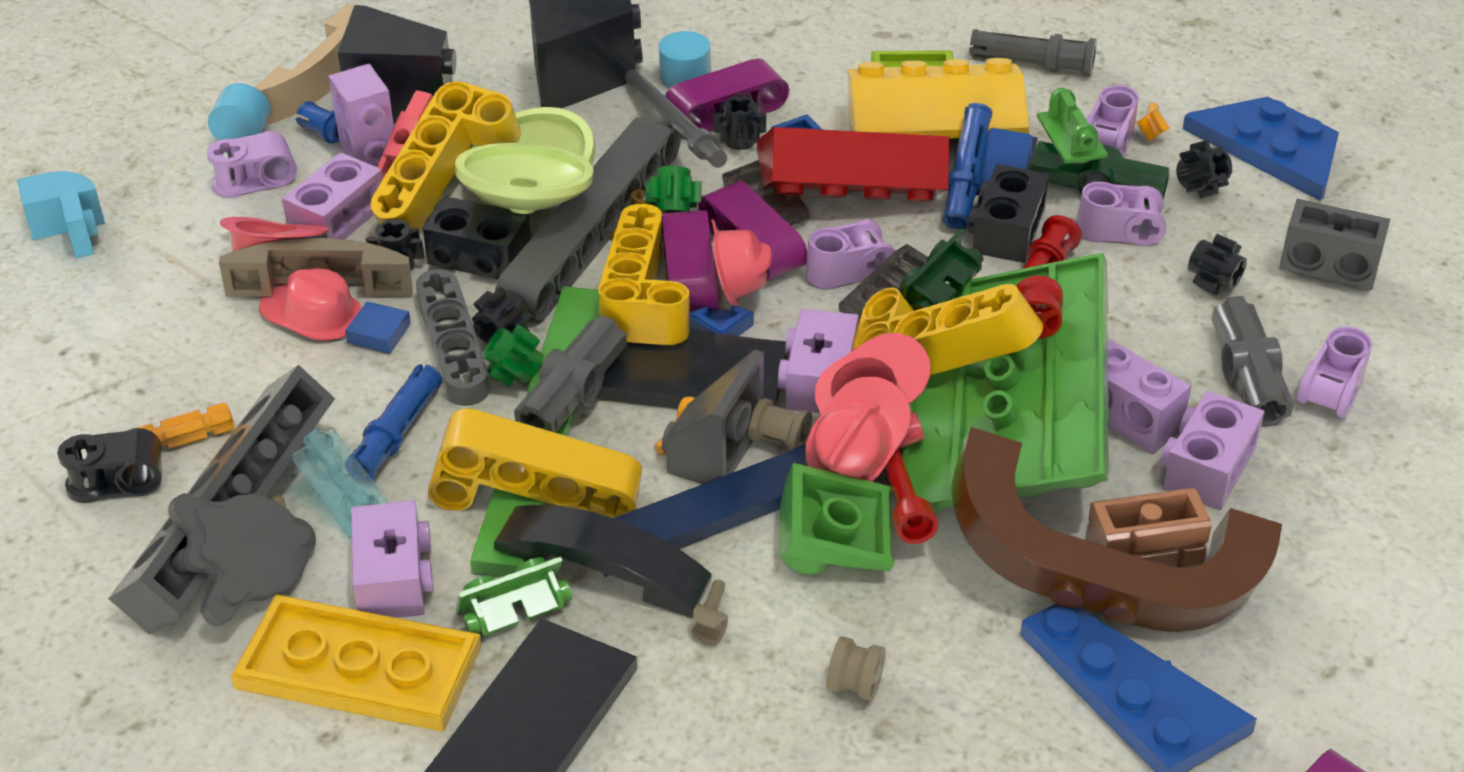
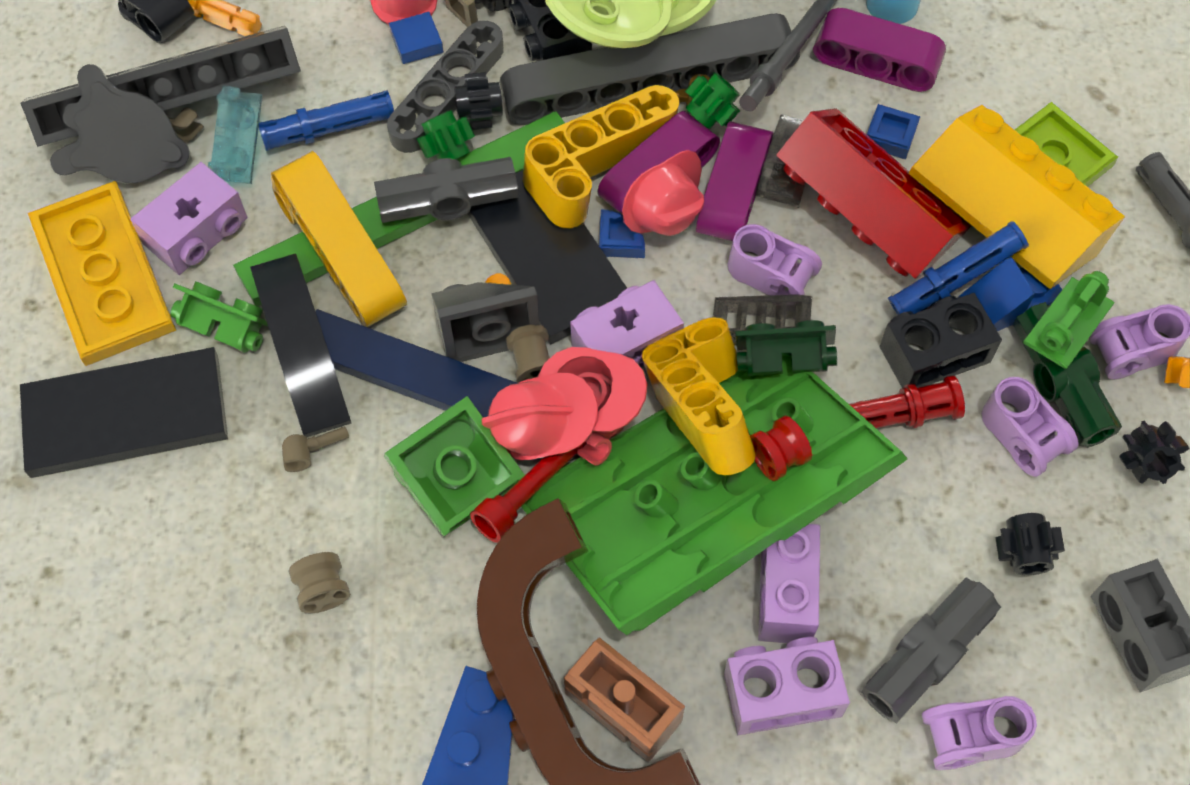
camera: 50 degrees right, 20 degrees up
(739, 122) = (855, 81): black gear -> none

